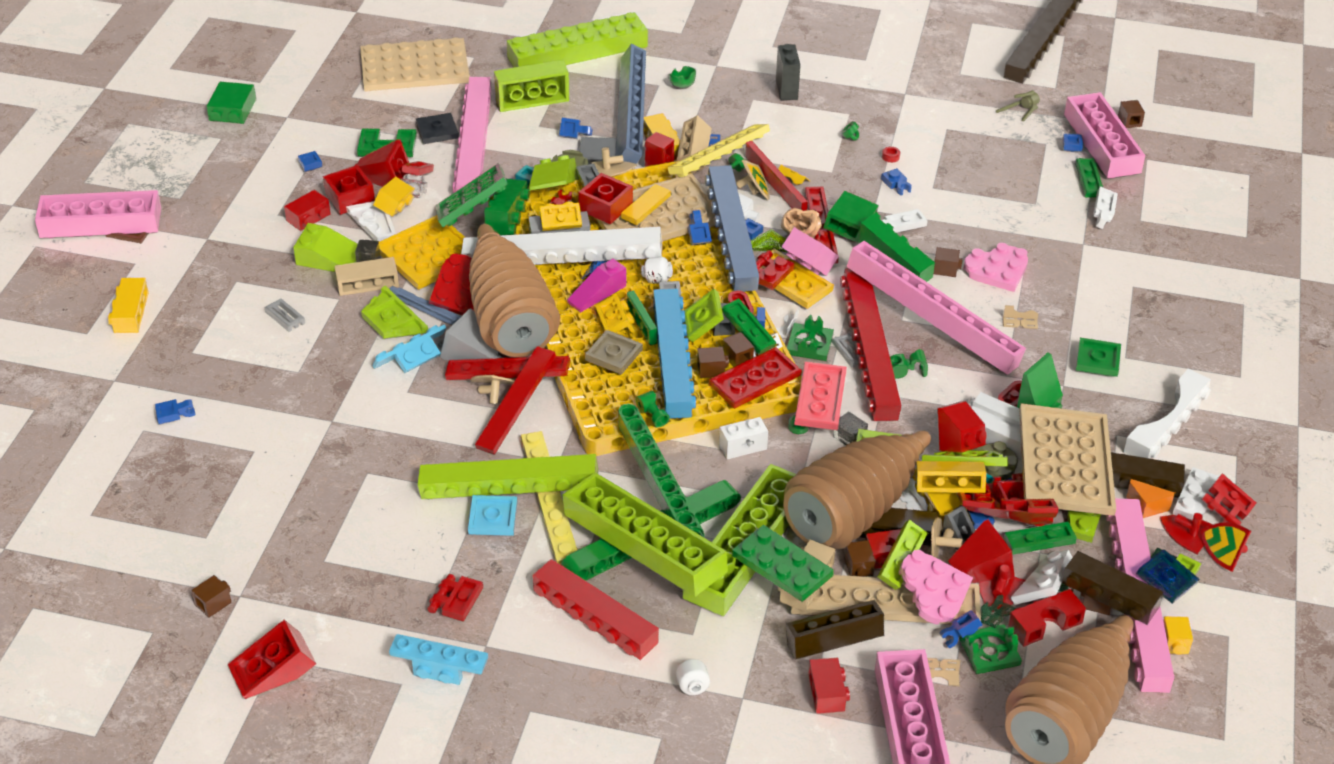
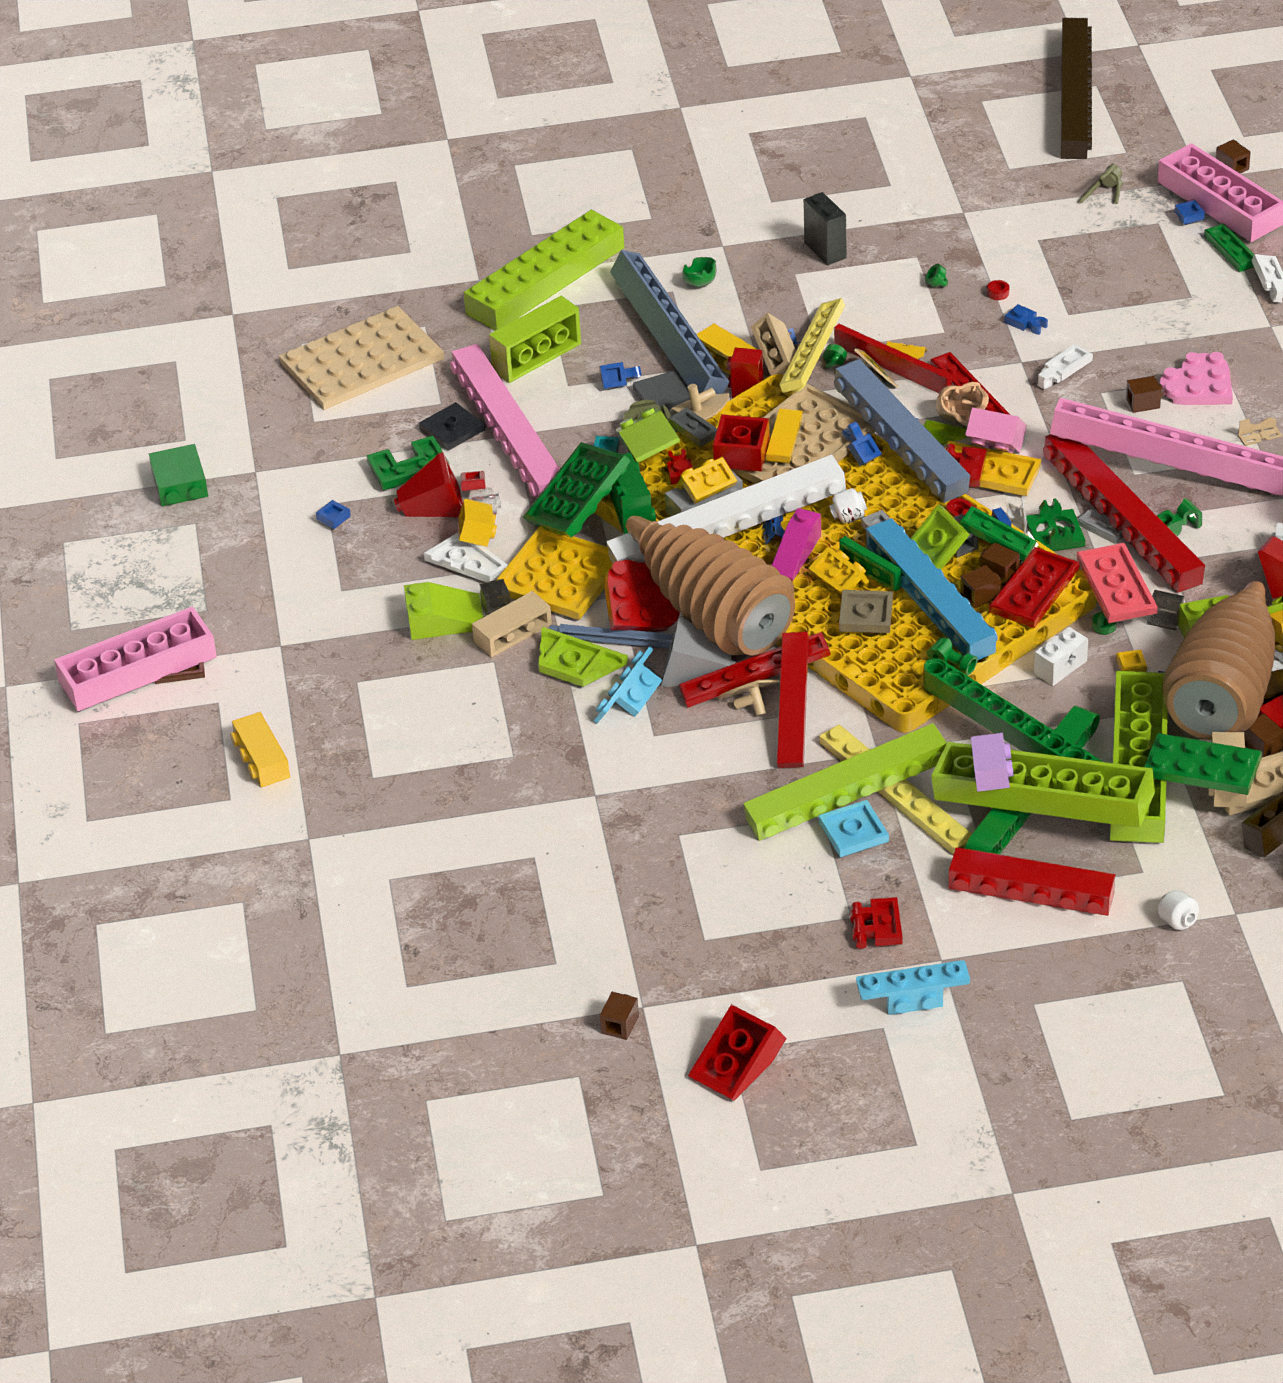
camera: 20 degrees left, 0 degrees up
(171, 410) = (410, 846): blue plate -> none
(281, 316) = (446, 702): light grey tile -> none
(307, 209) = (380, 572): red brick -> none
(348, 188) = (413, 531): red brick -> none
(606, 499) = (990, 762): none -> lavender brick
(798, 461) = (1131, 661): none -> yellow tile
(847, 215) = (1009, 376): green brick -> none
(895, 247) = (1058, 384): green wedge -> none

